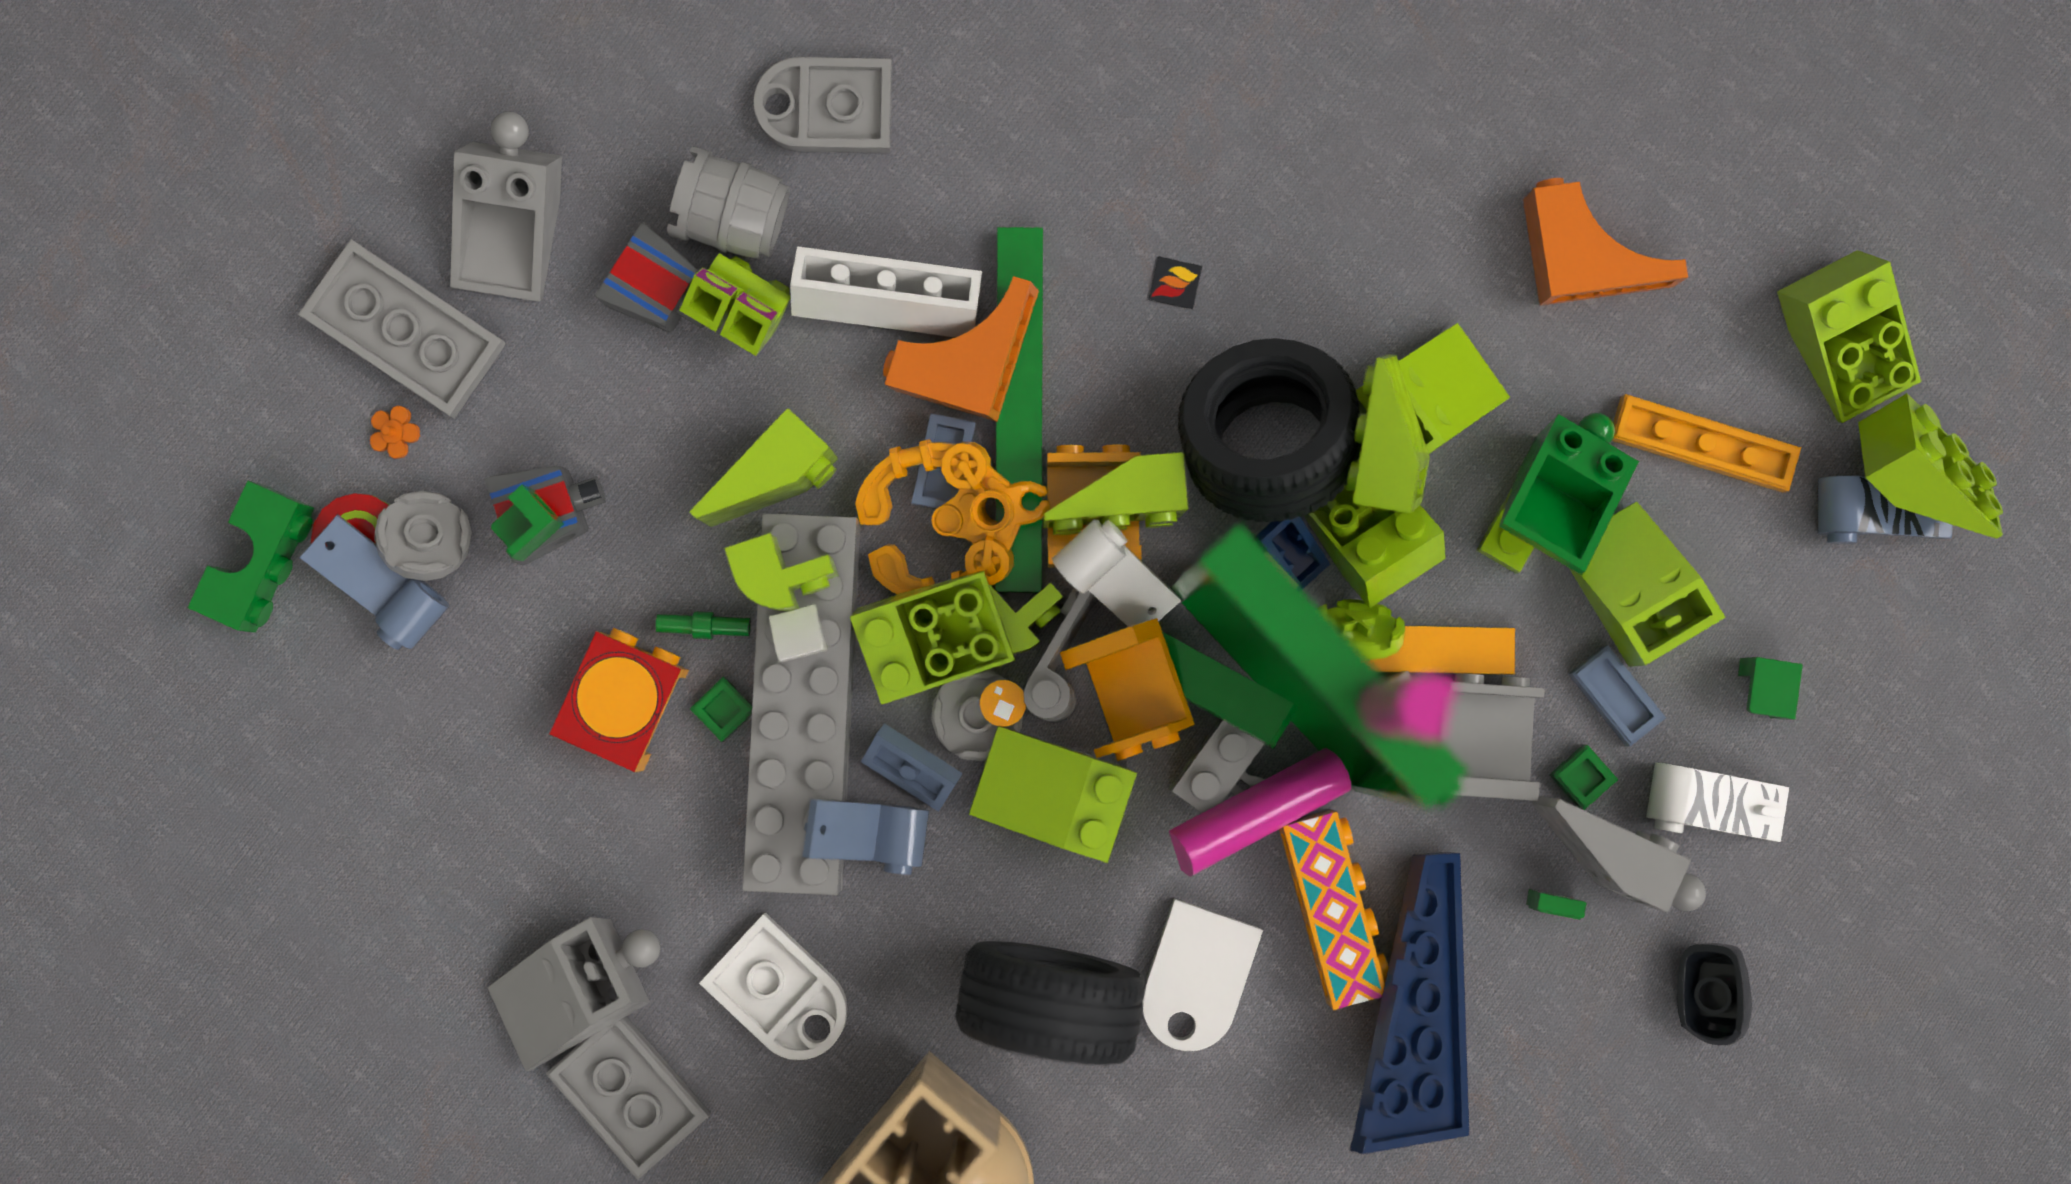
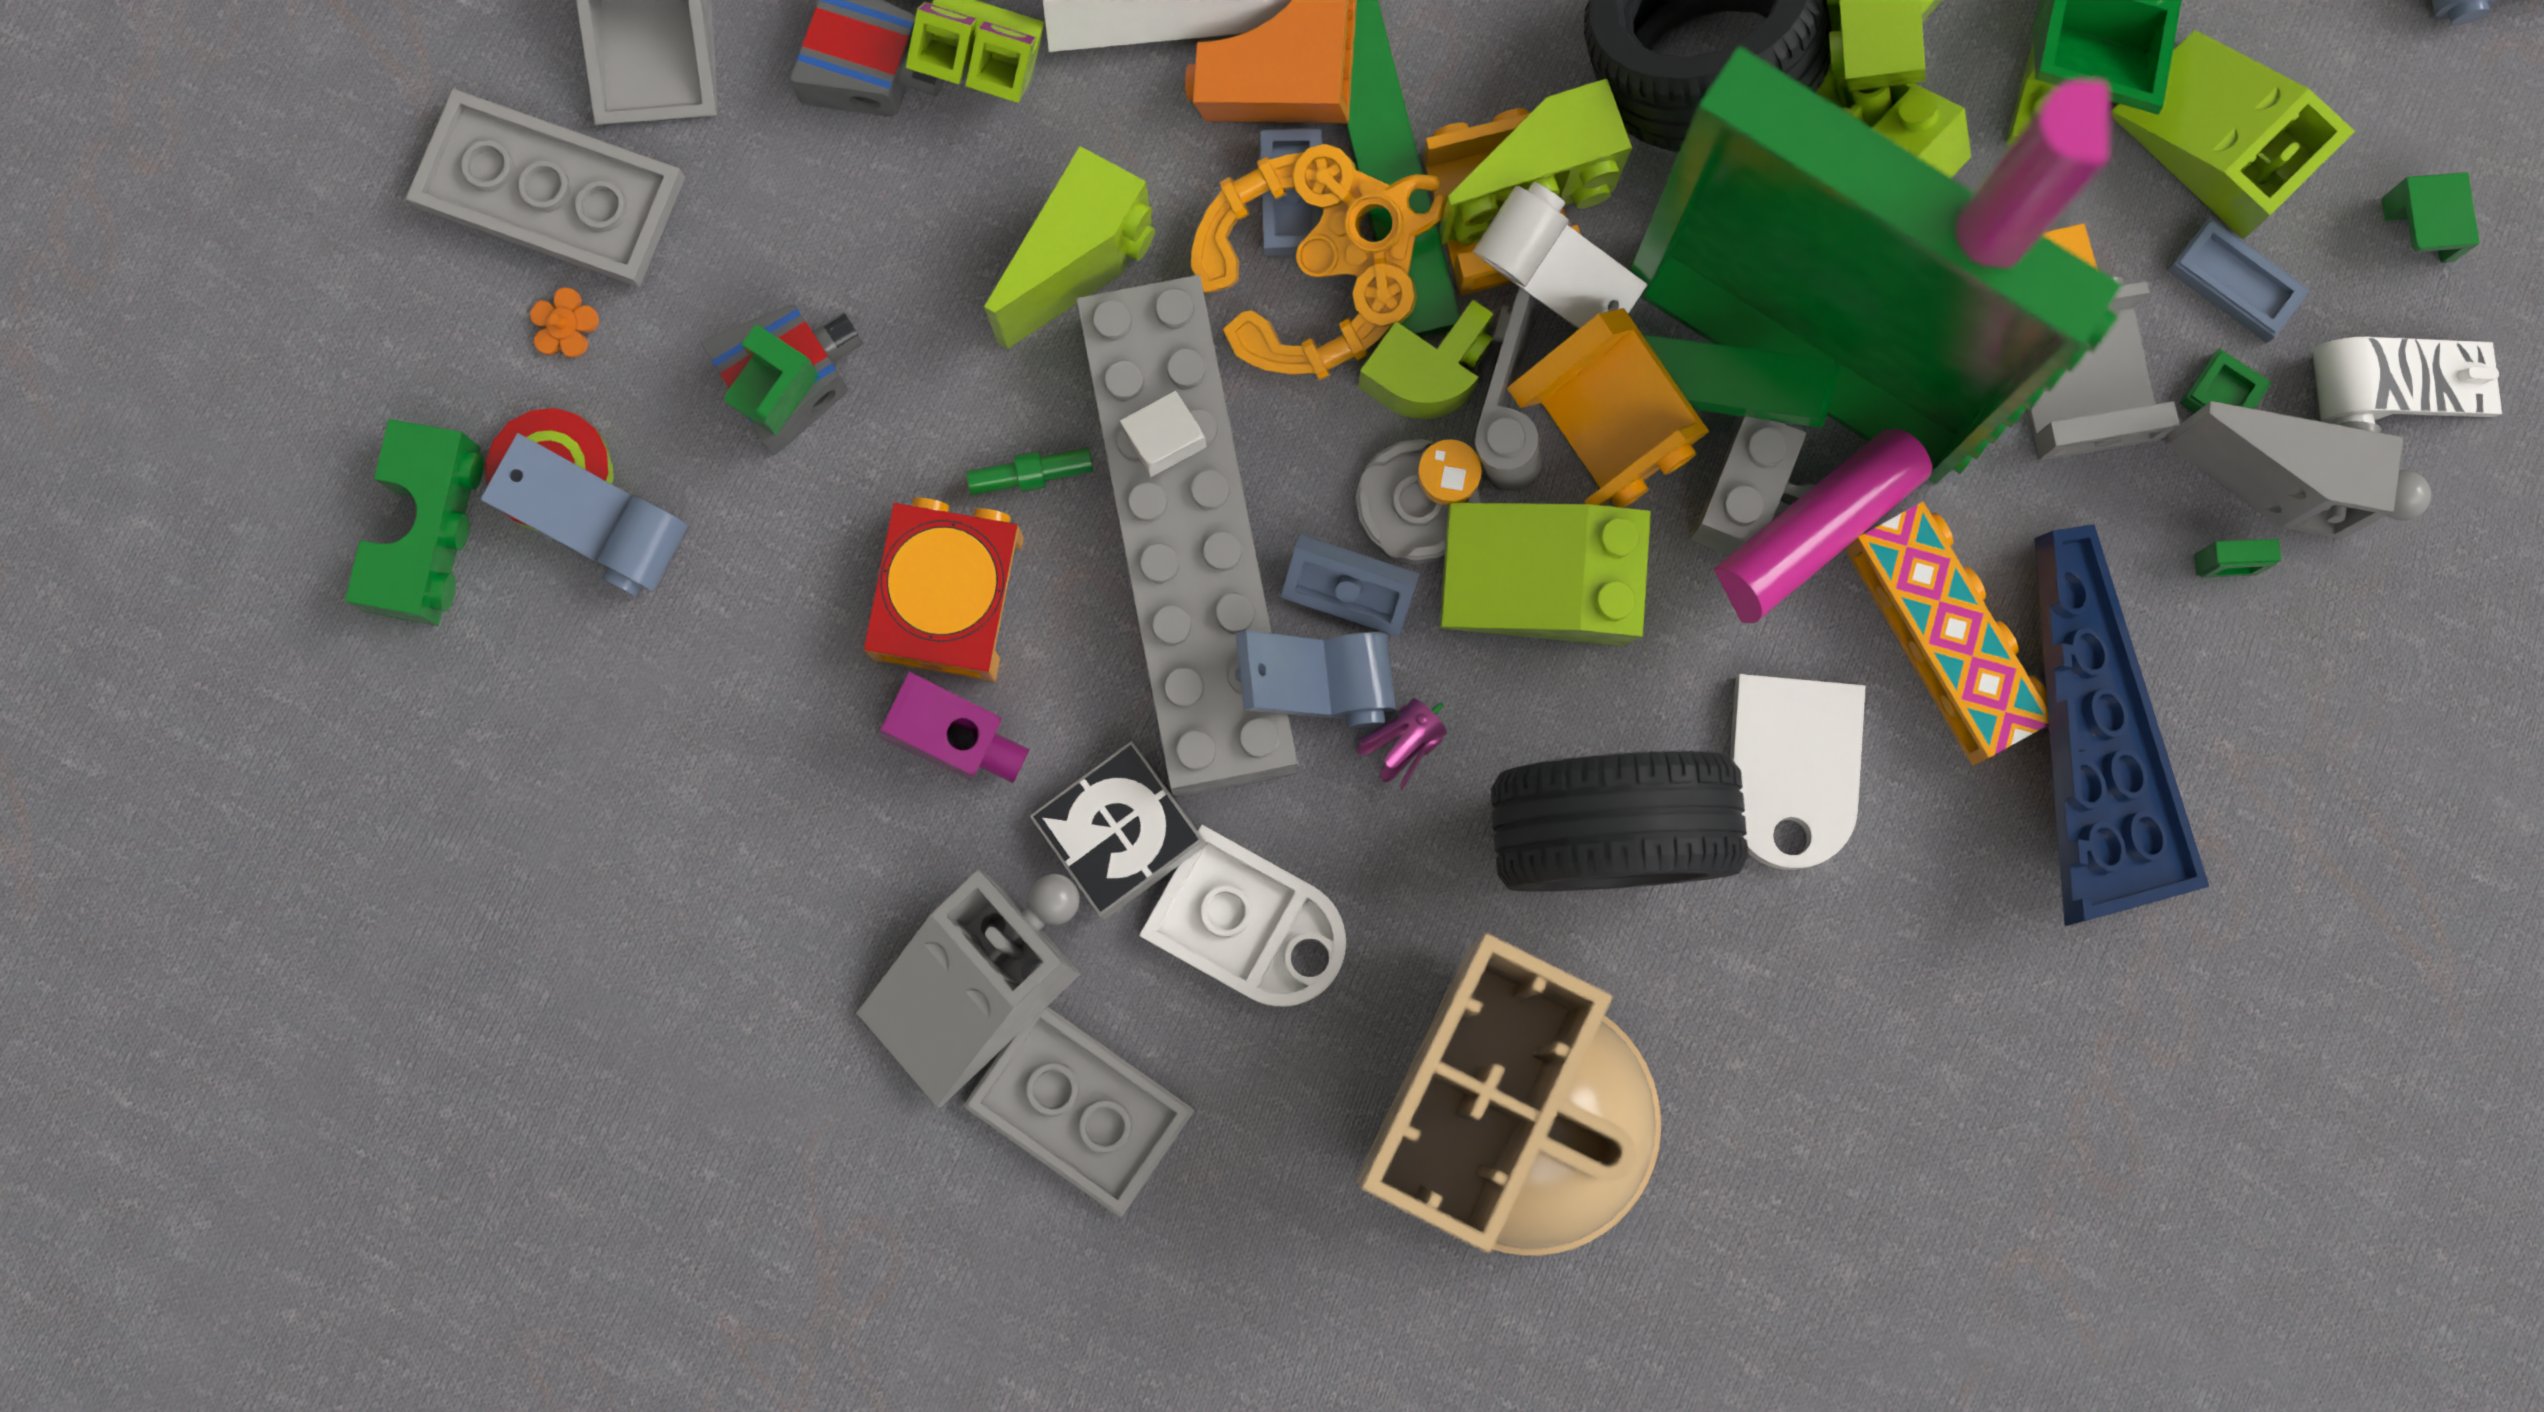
camera: 10 degrees left, 5 degrees down
(423, 536) = (634, 441): light grey tile -> none
(585, 790) = (921, 723): none -> magenta torso
(702, 904) = (1118, 830): none -> tile
(723, 709) = (1082, 574): green tile -> none
(766, 580) = (1115, 373): lime brick -> none
(931, 636) = (1339, 399): lime slope -> none
(936, 886) = (1421, 735): none -> flat silver piece
(1714, 993) = (2476, 620): black piece -> none

